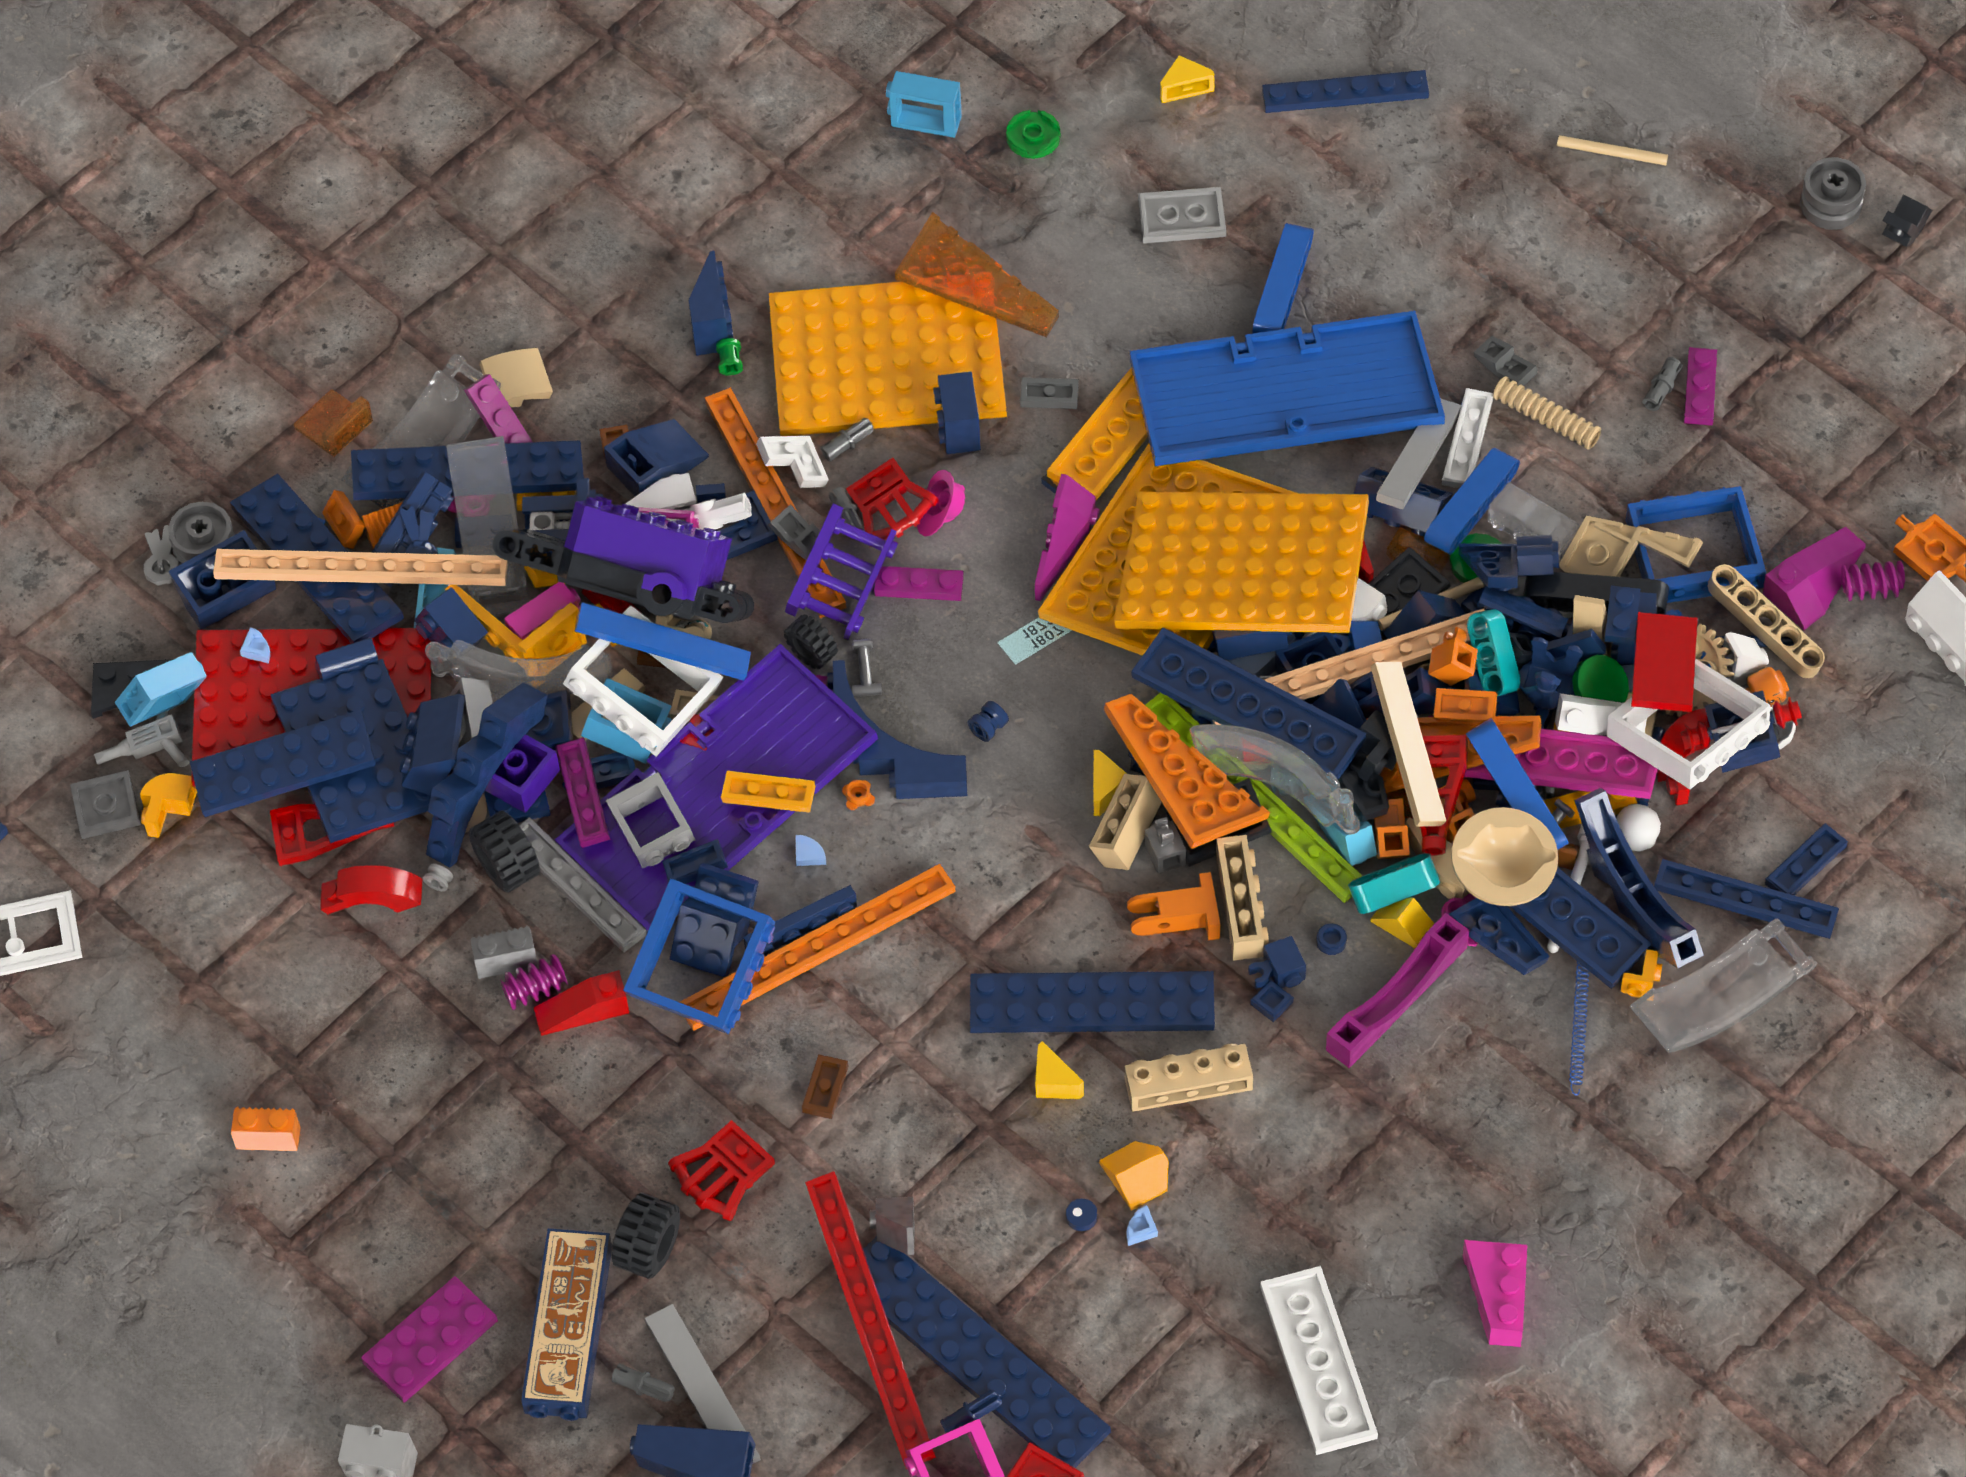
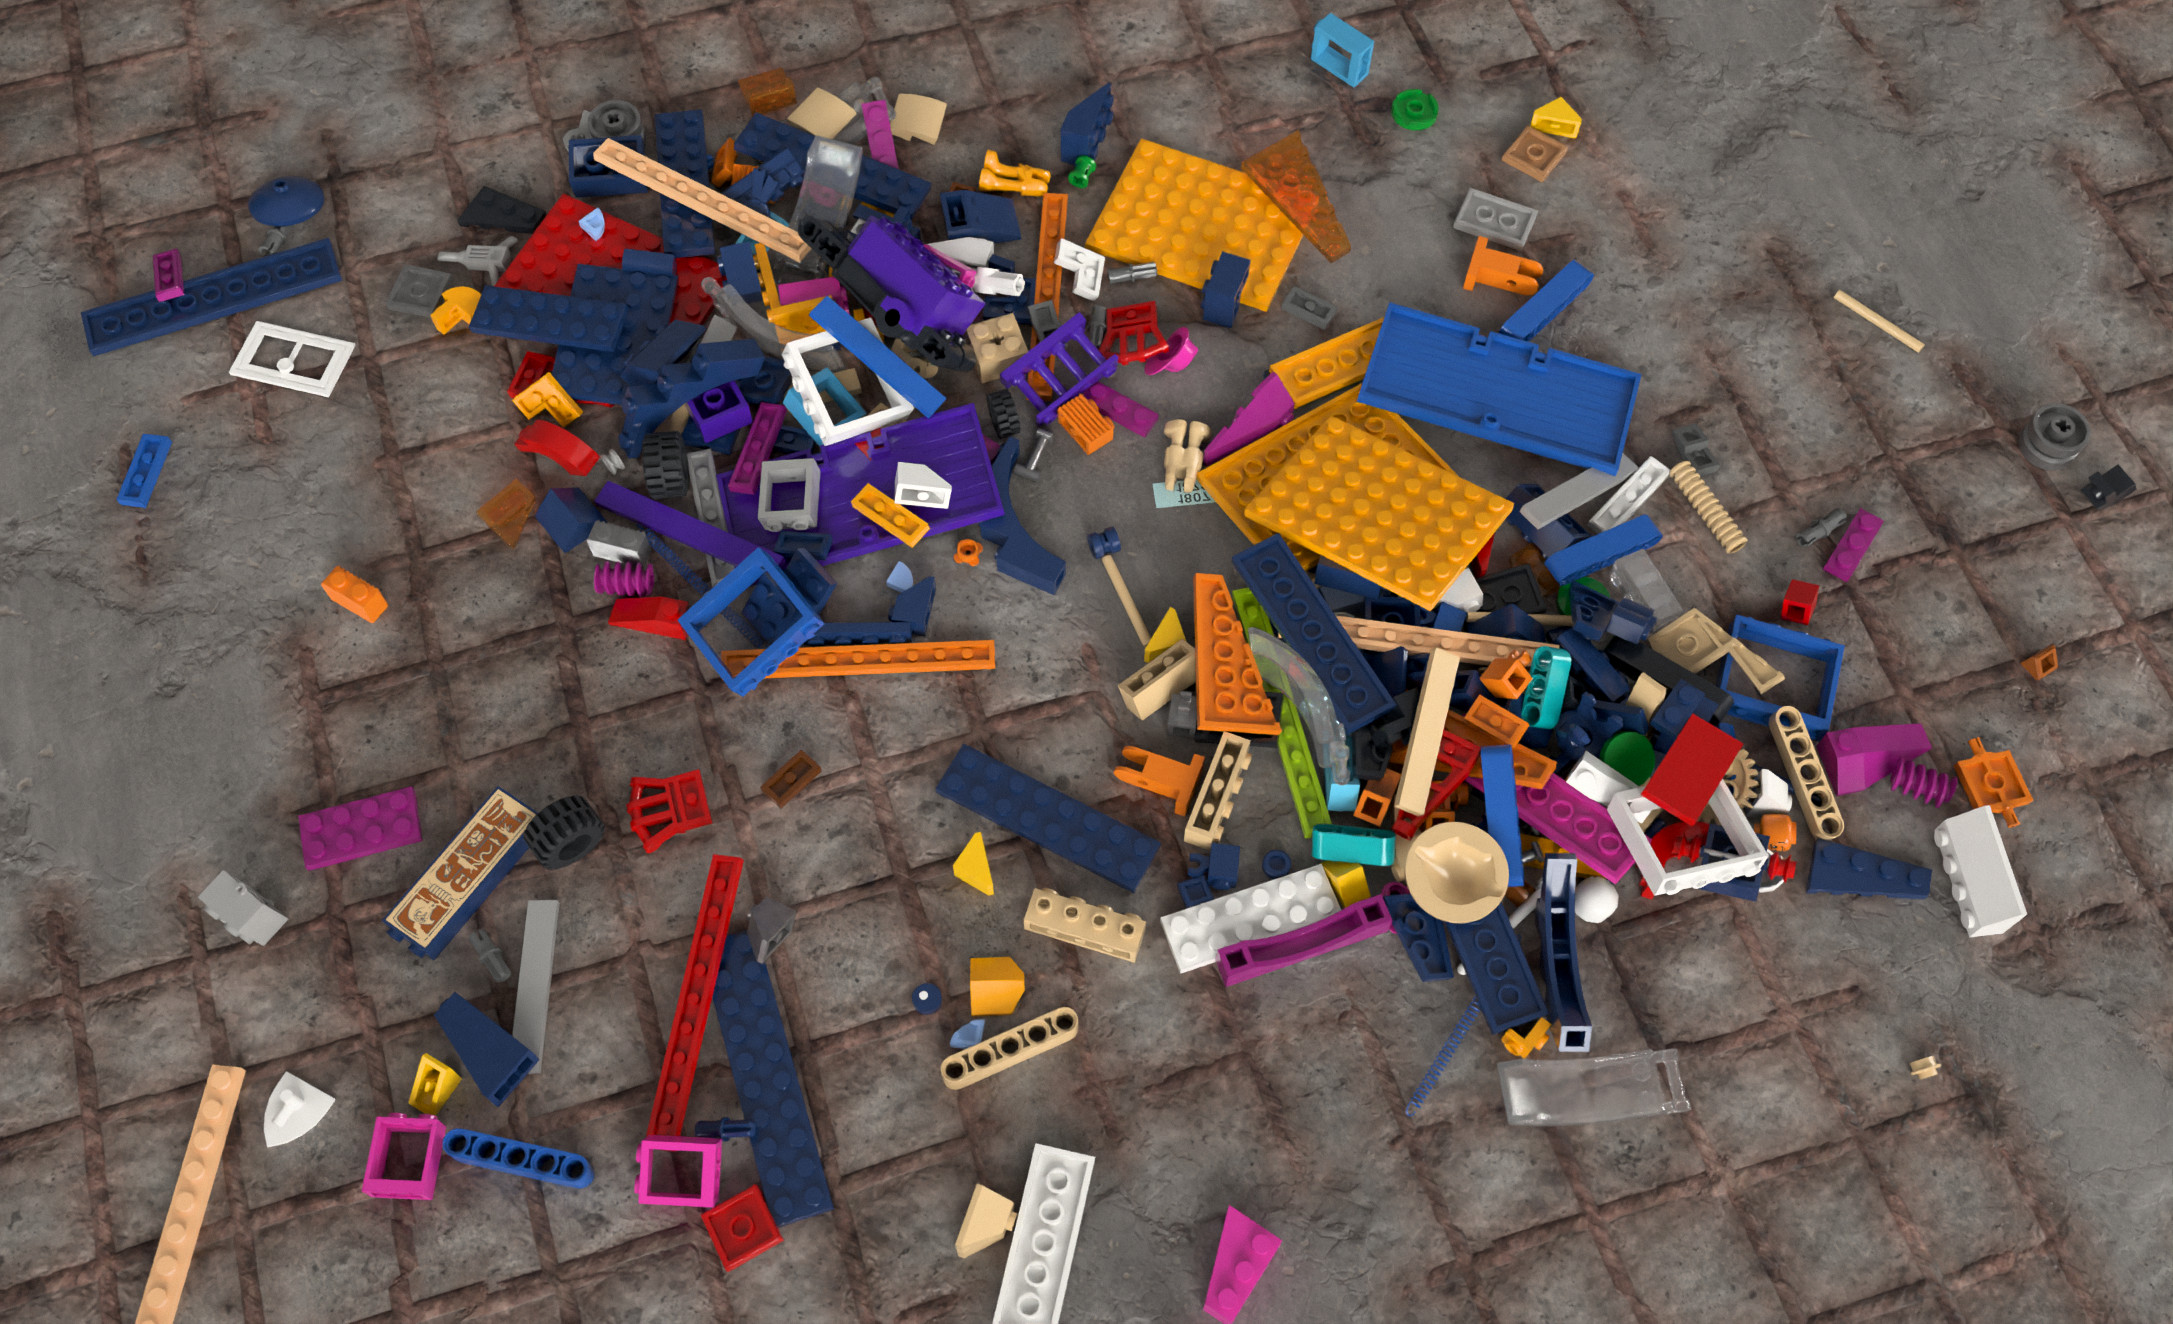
camera: 25 degrees right, 5 degrees up
(160, 689) = (503, 222): dark azure window -> none
(329, 841) = (550, 395): none -> light orange tile
(364, 977) = (508, 512): none -> clear orange wing
(419, 421) = (821, 114): none -> tan slope
(429, 954) = (568, 516): none -> dark blue slope
(554, 906) = (678, 525): none -> dark purple tile
(626, 961) = (700, 583): none -> blue piece
(678, 392) = (1029, 181): none -> light orange piece
(764, 576) = (996, 345): none -> tan brick
(784, 748) = (920, 486): none -> white slope
(841, 869) = (915, 606): none -> dark blue slope
(897, 614) = (1085, 423): none -> orange brick
(1017, 606) = (1183, 462): none -> tan piece
(1043, 766) = (1126, 600): none -> tan bar
(1182, 127) = (1534, 153): none -> medium nougat tile
(1184, 1229) = (999, 1059): none -> tan beam
(1219, 266) = (1501, 270): none -> orange piece
(1257, 1364) = (985, 1221): none -> tan slope
(1345, 91) = (1681, 182): dark blue plate -> none
(1347, 981) = (1249, 915): none -> white plate
(1679, 464) = (1799, 602): none -> red brick
(1746, 898) = (1659, 1014): dark blue plate -> none
(1807, 861) = (1730, 1007): dark blue tile -> none
(1846, 691) = (1855, 871): none -> dark blue wing
(1925, 417) = (2041, 662): none -> dark orange slope

